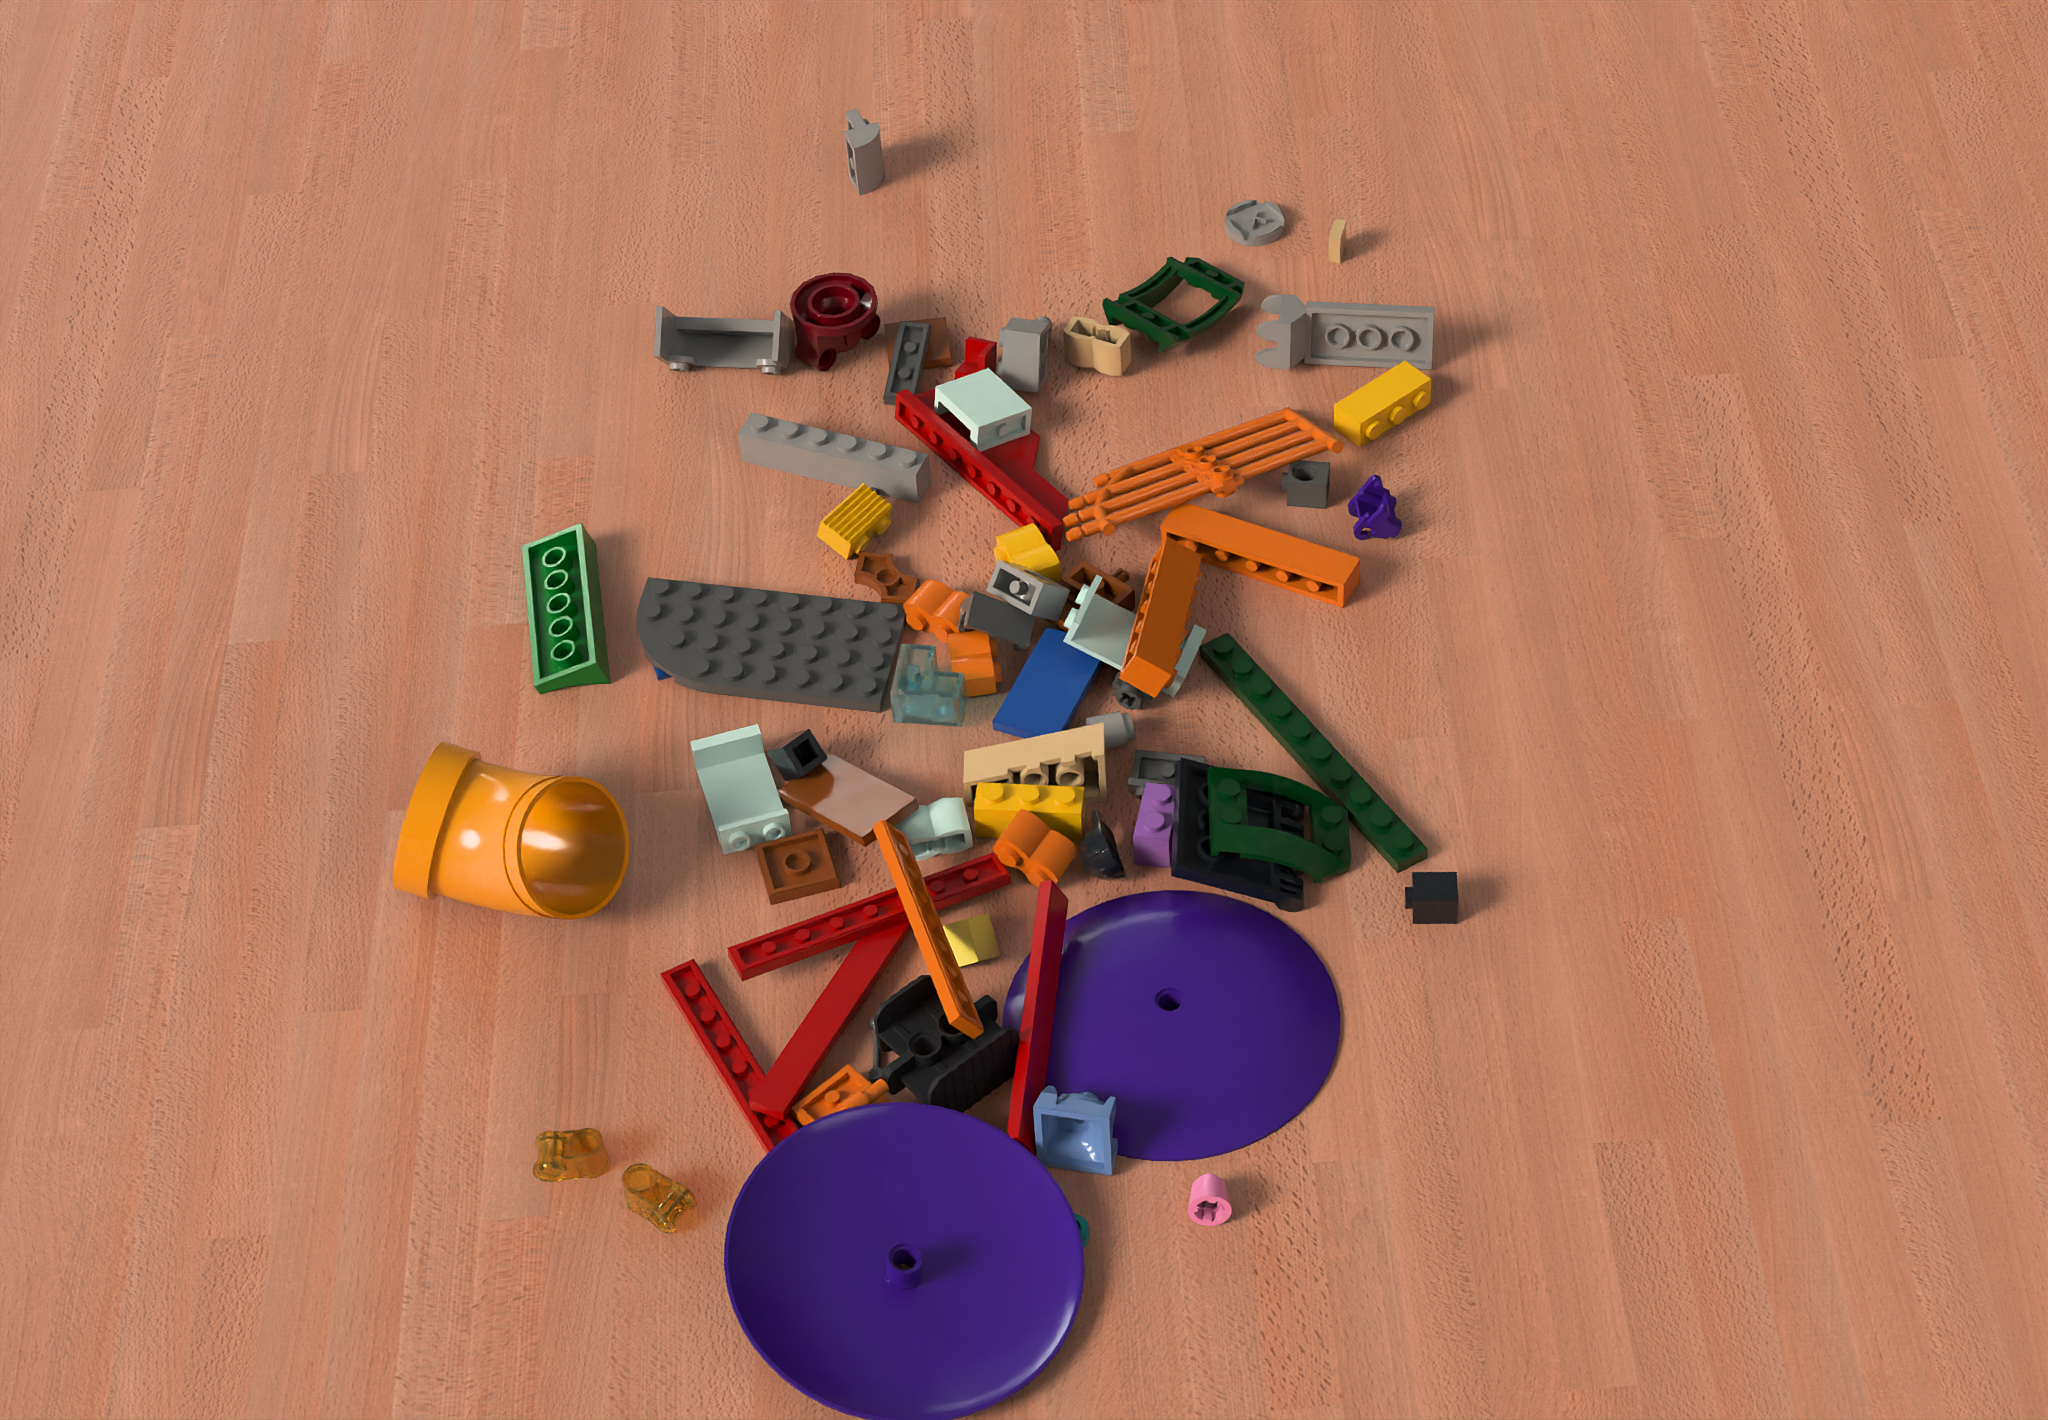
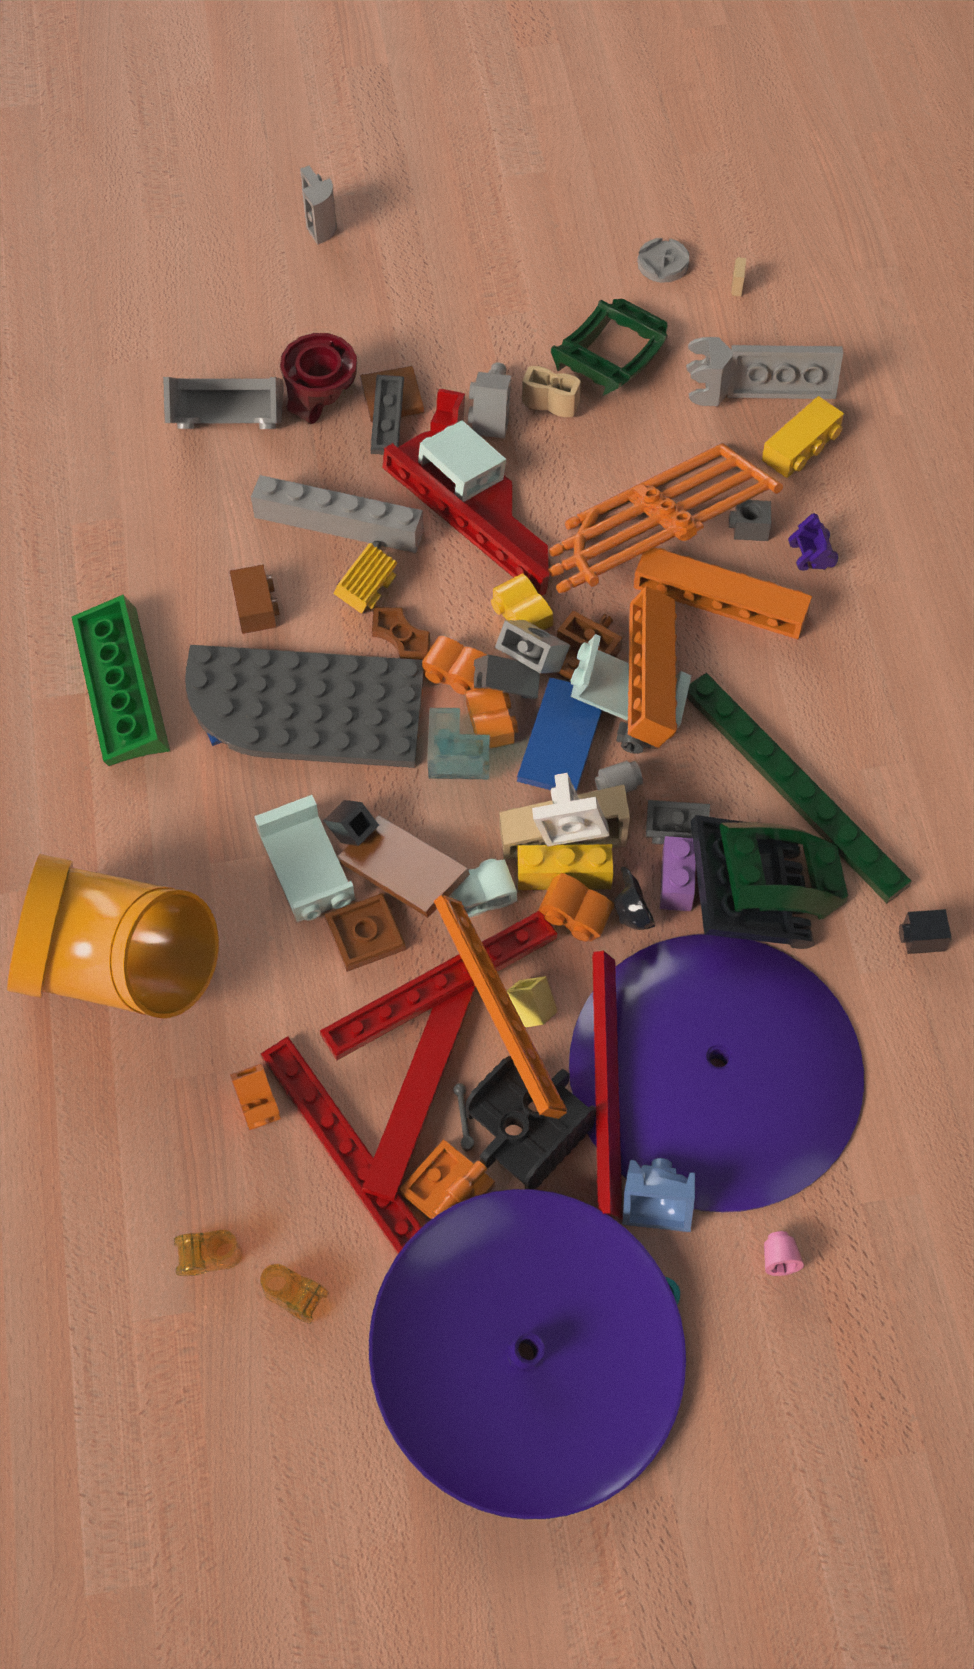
camera: 10 degrees left, 15 degrees up
(647, 1011) = (255, 1096): none -> orange brick
(726, 537) = (253, 598): none -> dark orange brick
(1033, 744) = (569, 817): none -> white bracket

